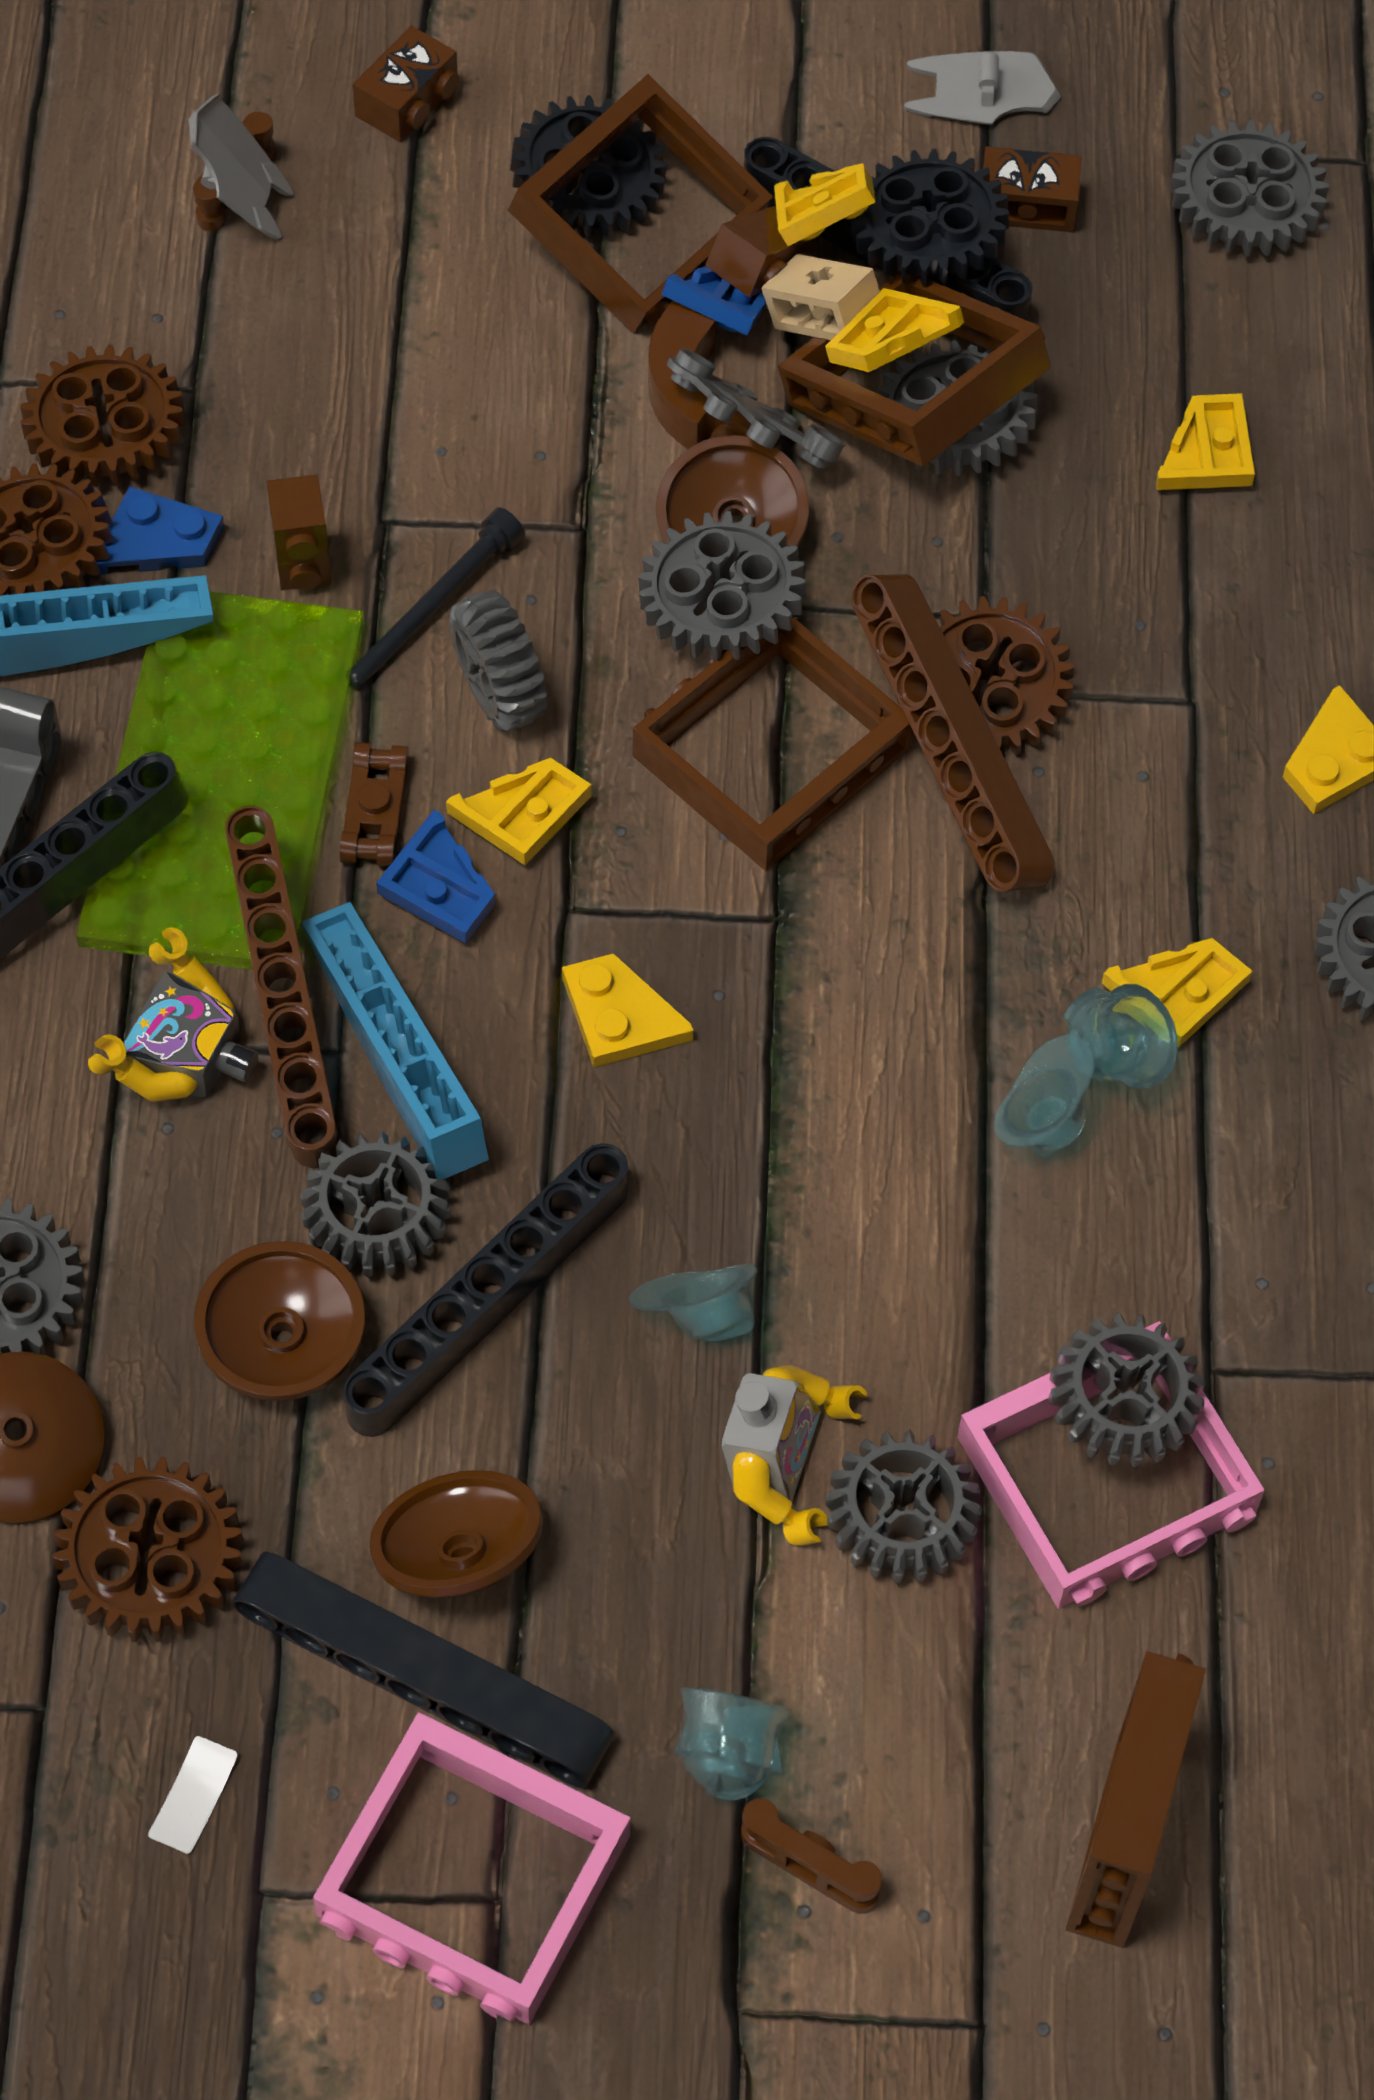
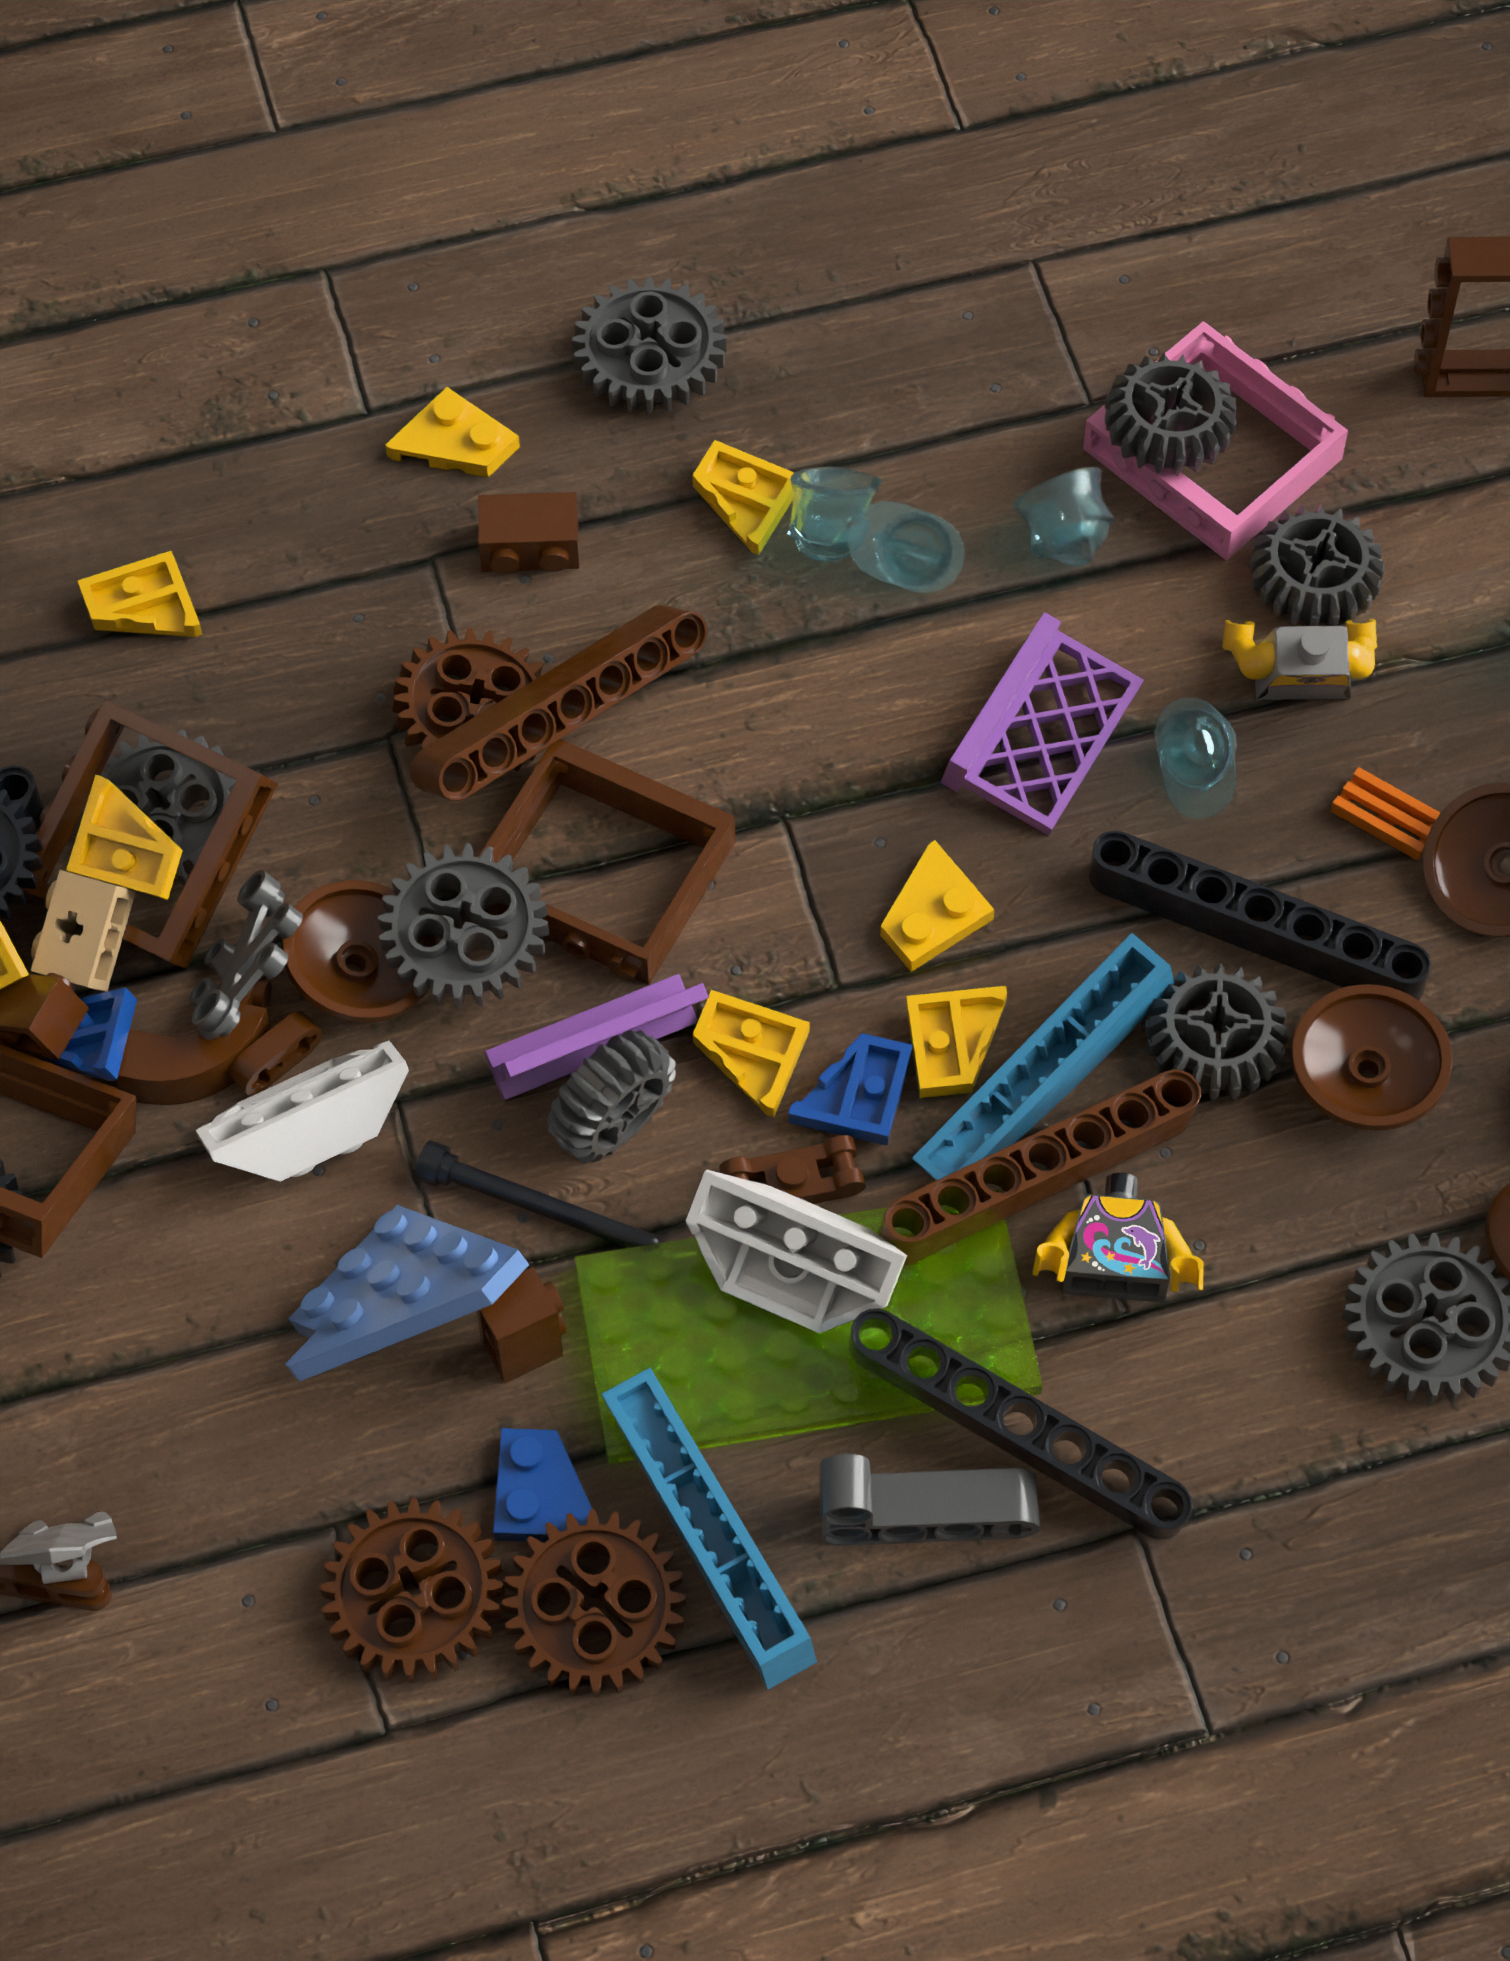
camera: 105 degrees left, 0 degrees up
(280, 746) = (790, 1253): none -> white wedge
(373, 453) = (397, 1285): none -> medium blue wing
(464, 975) = (952, 1037): none -> yellow wing
(569, 664) = (564, 1045): none -> medium lavender fence
(582, 427) = (309, 1115): none -> white wedge
(595, 1430) = (1391, 806): none -> orange tile
(658, 431) = (275, 1053): none -> reddish brown beam
(829, 1139) = (1006, 702): none -> medium lavender fence
(1038, 1265) = (1067, 517): none -> clear light blue helmet
(1185, 776) = (528, 532): none -> reddish brown brick

